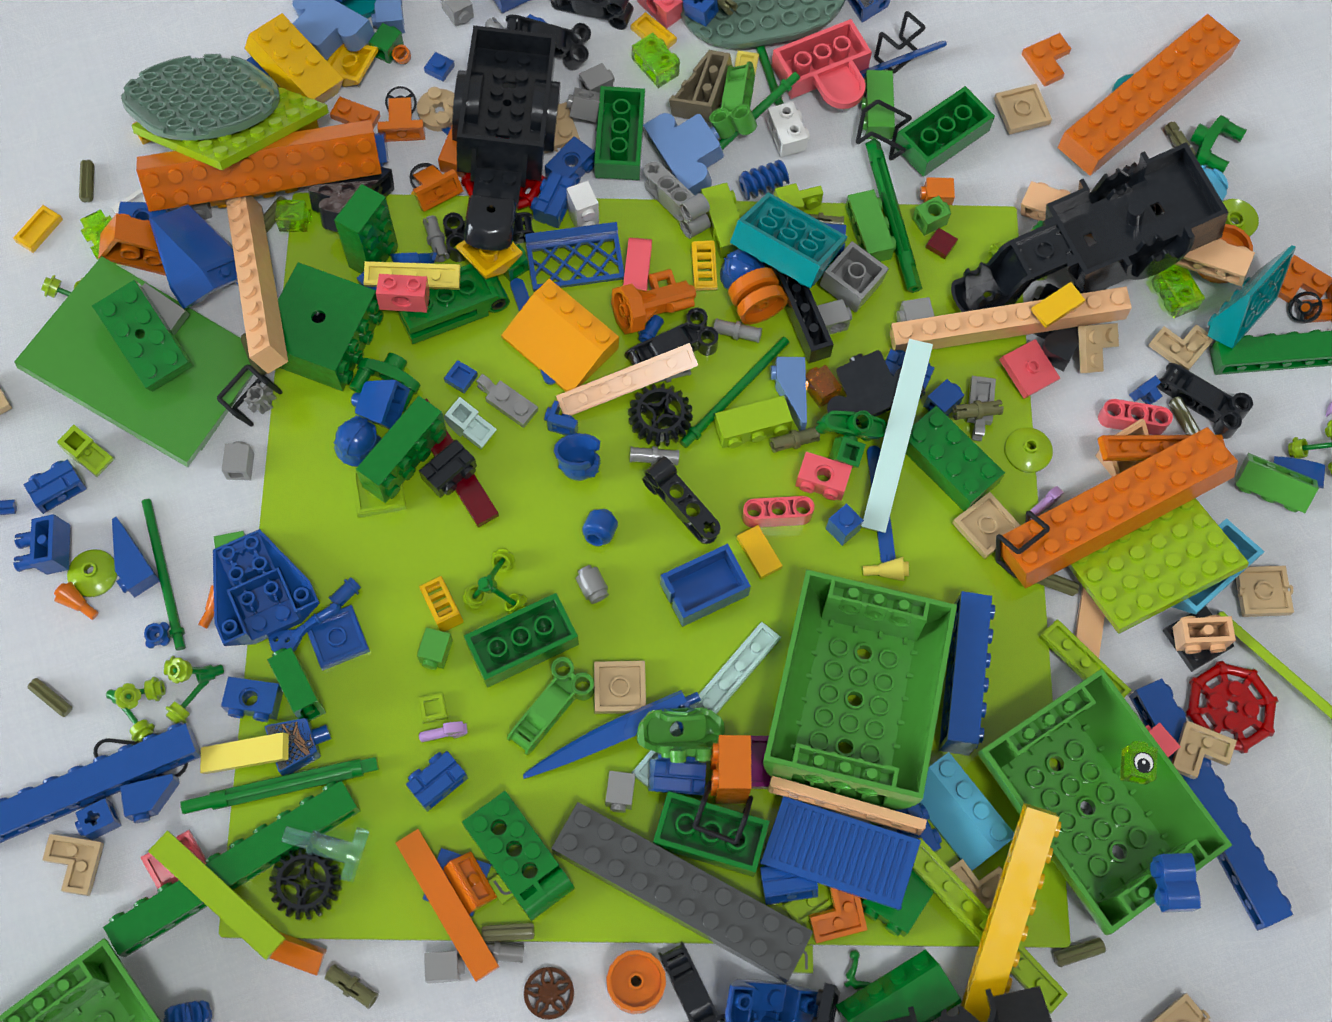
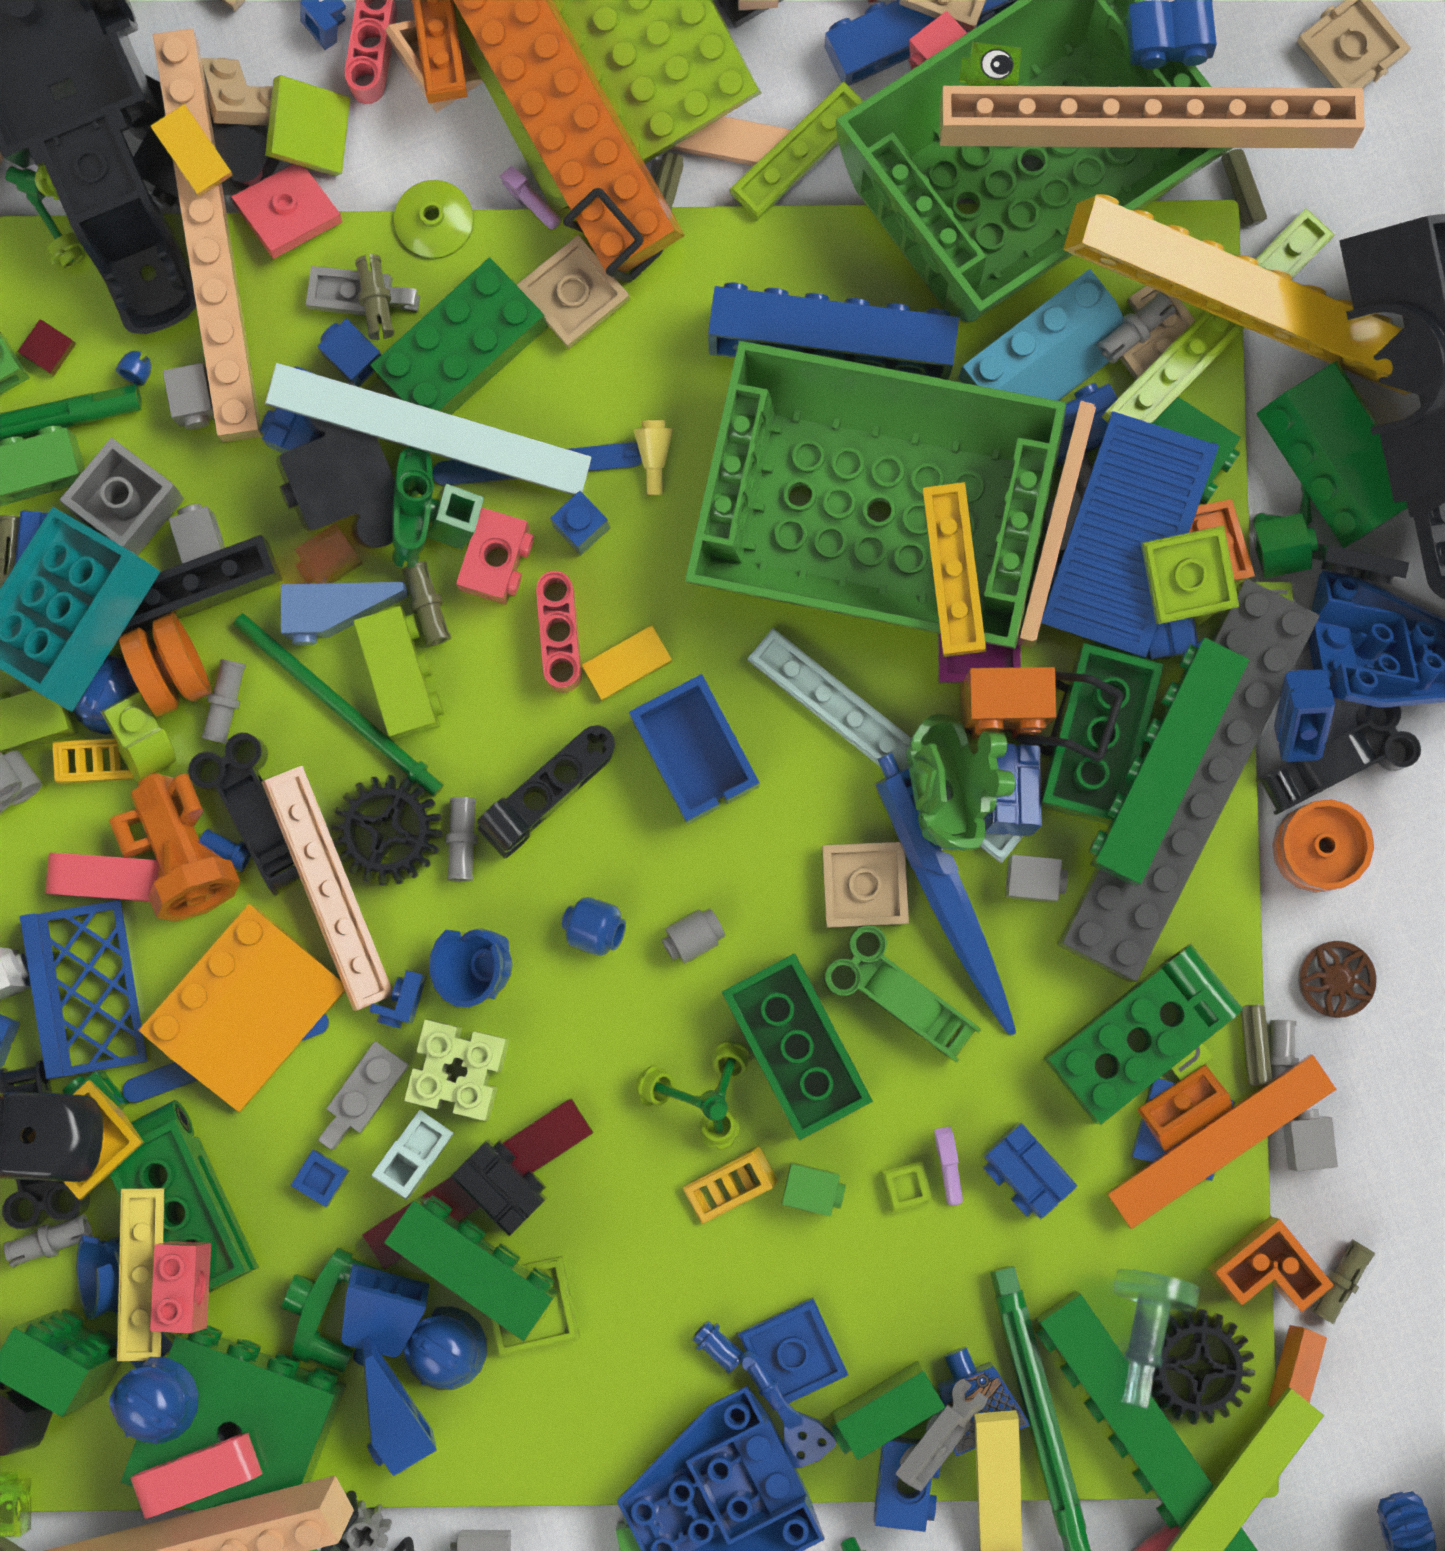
camera: 85 degrees left, 15 degrees up
(275, 713) = (942, 1436): none -> light grey plate
(297, 297) = (196, 1475): none -> coral beam
(319, 409) = (396, 1425): none -> blue slope
(340, 277) = (155, 1401): none -> blue helmet
(369, 935) = (1271, 1256): none -> orange brick
(512, 436) = (470, 1092): none -> yellowish green brick
(691, 869) = (1168, 762): none -> green brick
(715, 282) = (139, 737): none -> lime brick
(721, 965) = (1304, 715): none -> blue brick
(812, 722) = (954, 569): none -> yellow plate
(814, 889) = (1189, 574): none -> lime tile
(837, 965) = (1284, 545): none -> green brick
(930, 286) = (133, 368): none -> blue hinge
(978, 867) = (1136, 327): none -> light grey pin
(1080, 380) = (307, 125): none -> lime tile
(1116, 865) = (1151, 117): none -> light nougat brick

